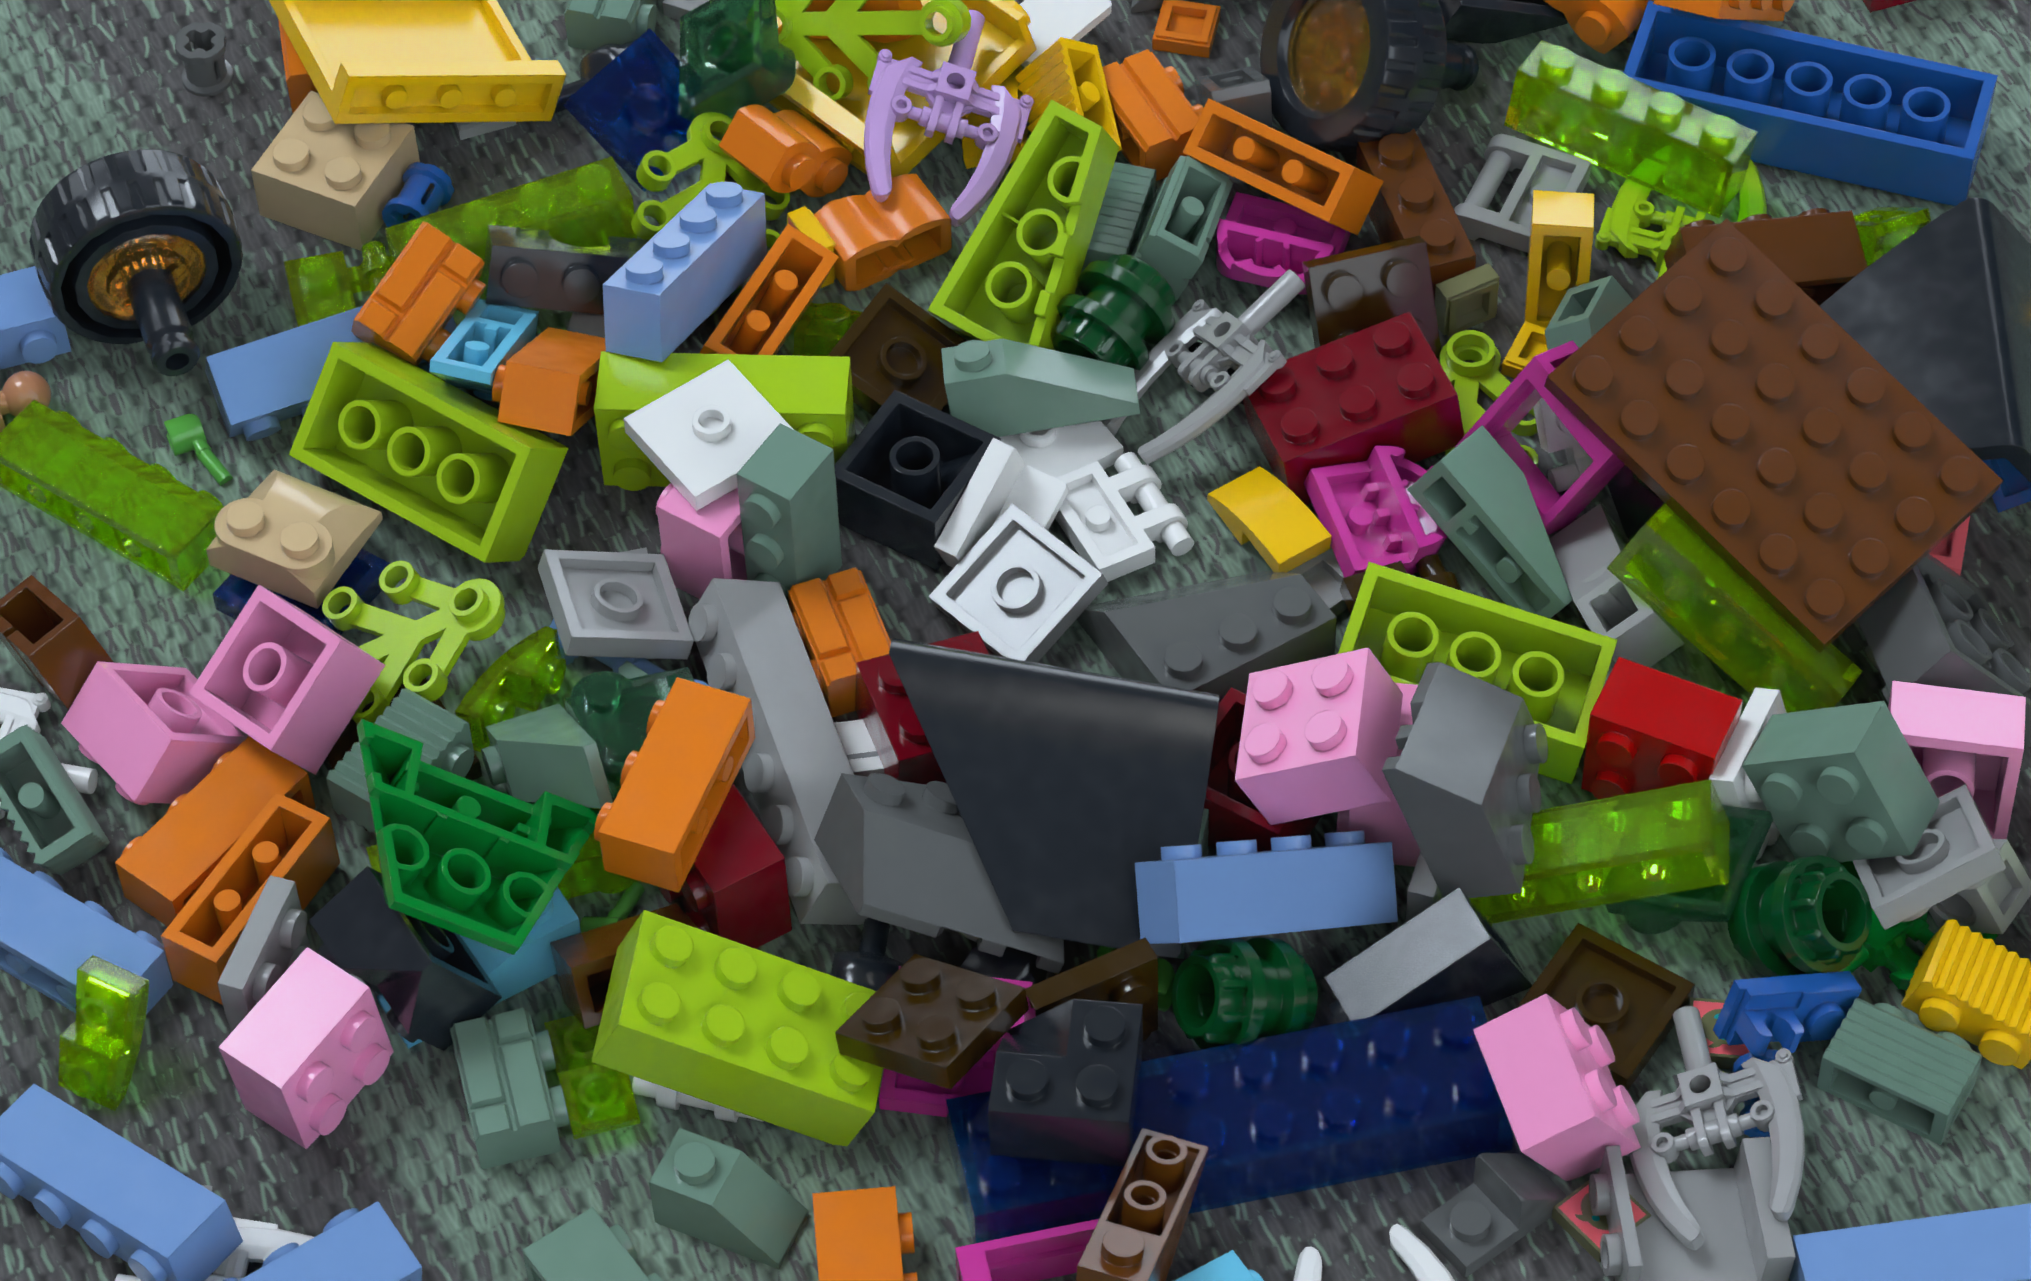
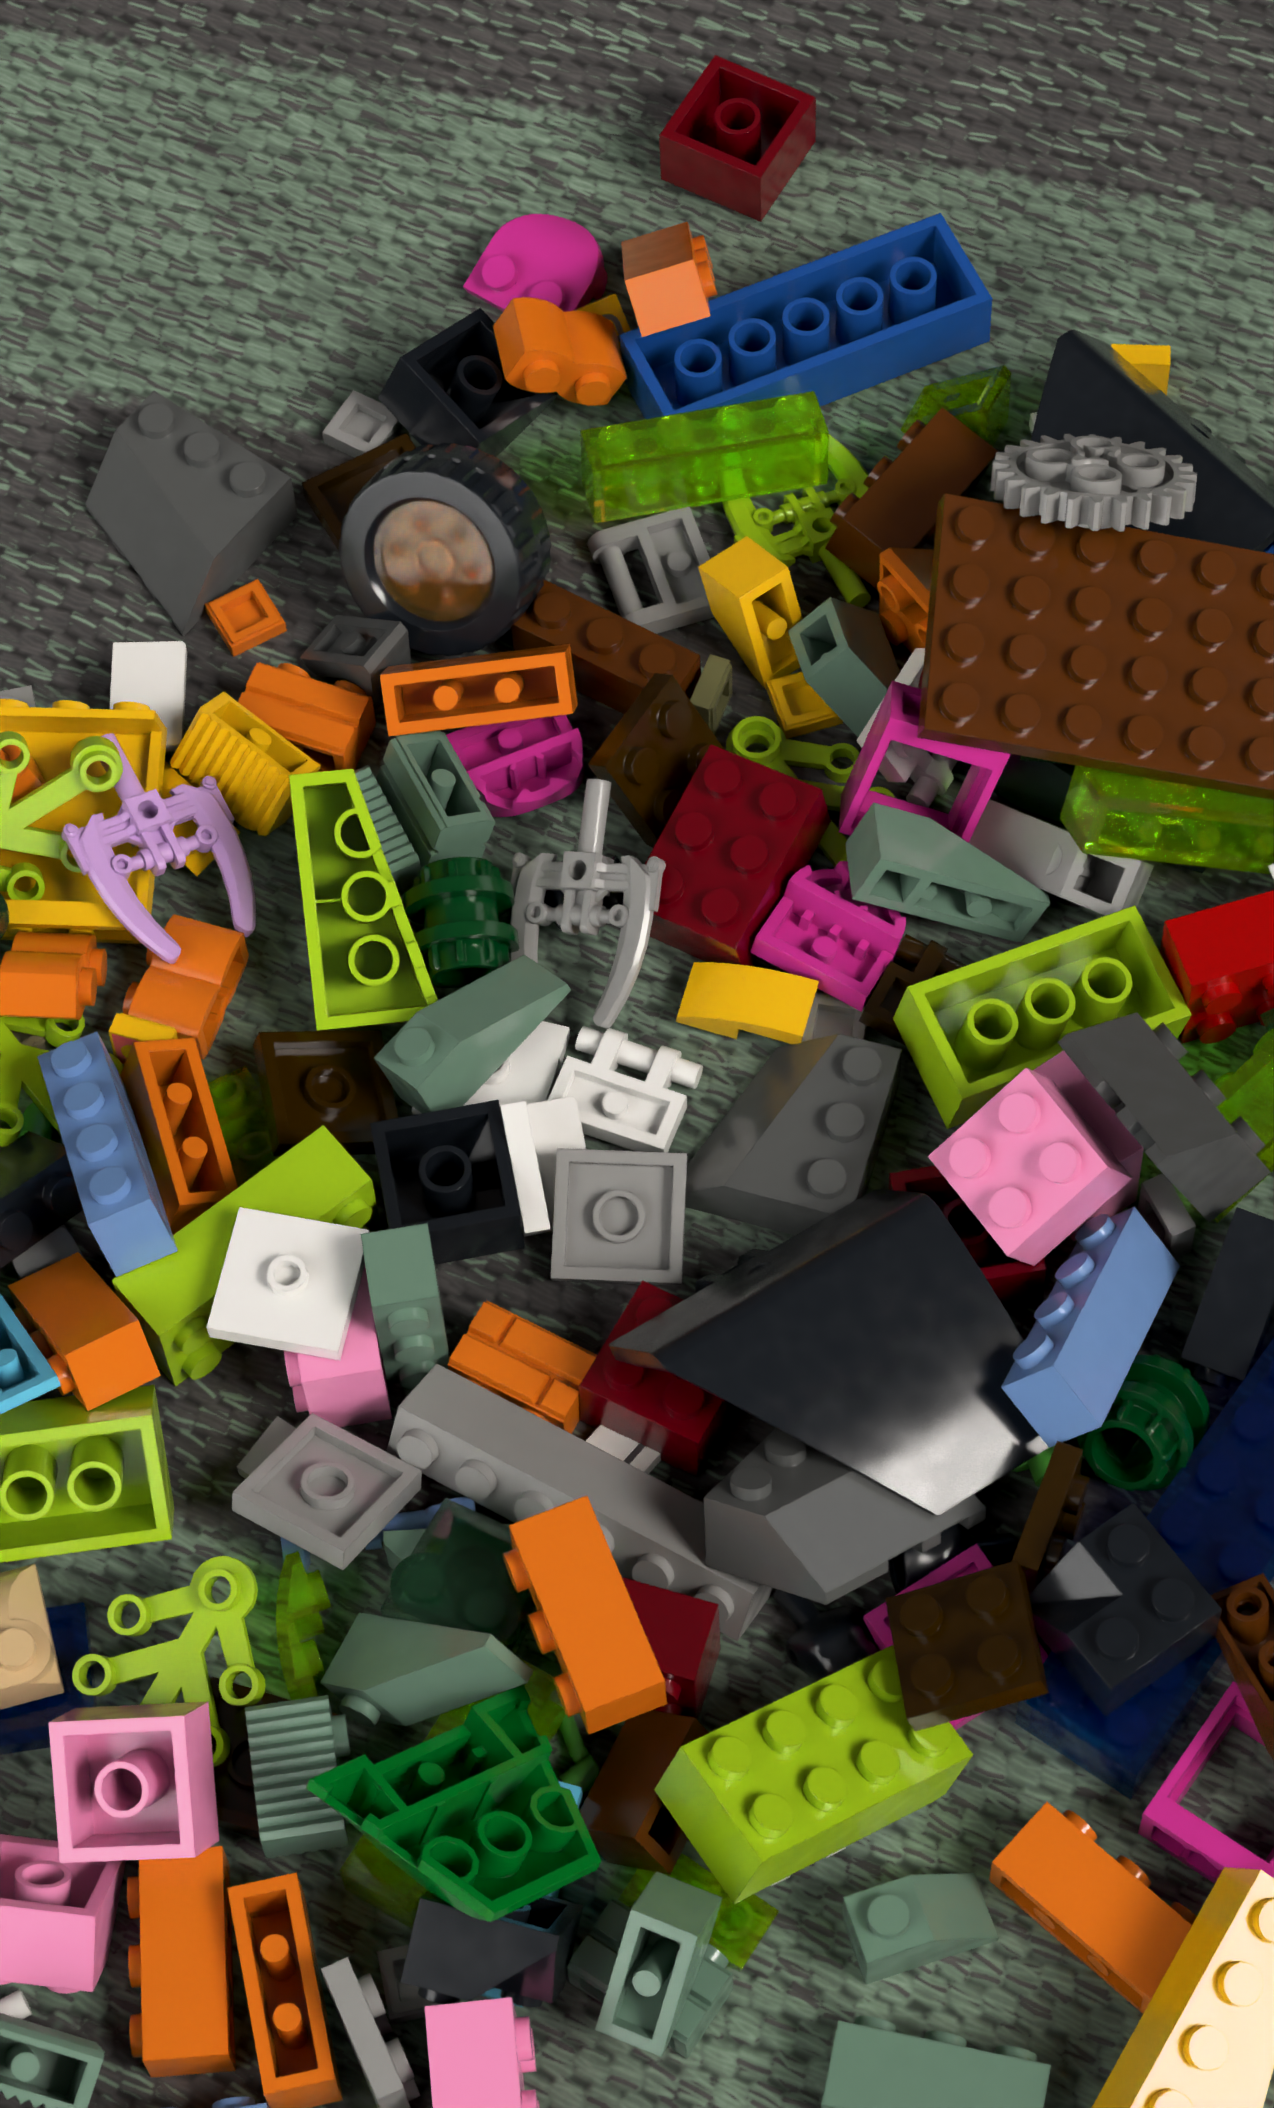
camera: 40 degrees left, 10 degrees up
(503, 1057) = (657, 1962): none -> sand green slope
(1866, 296) = (1093, 482): none -> light grey gear

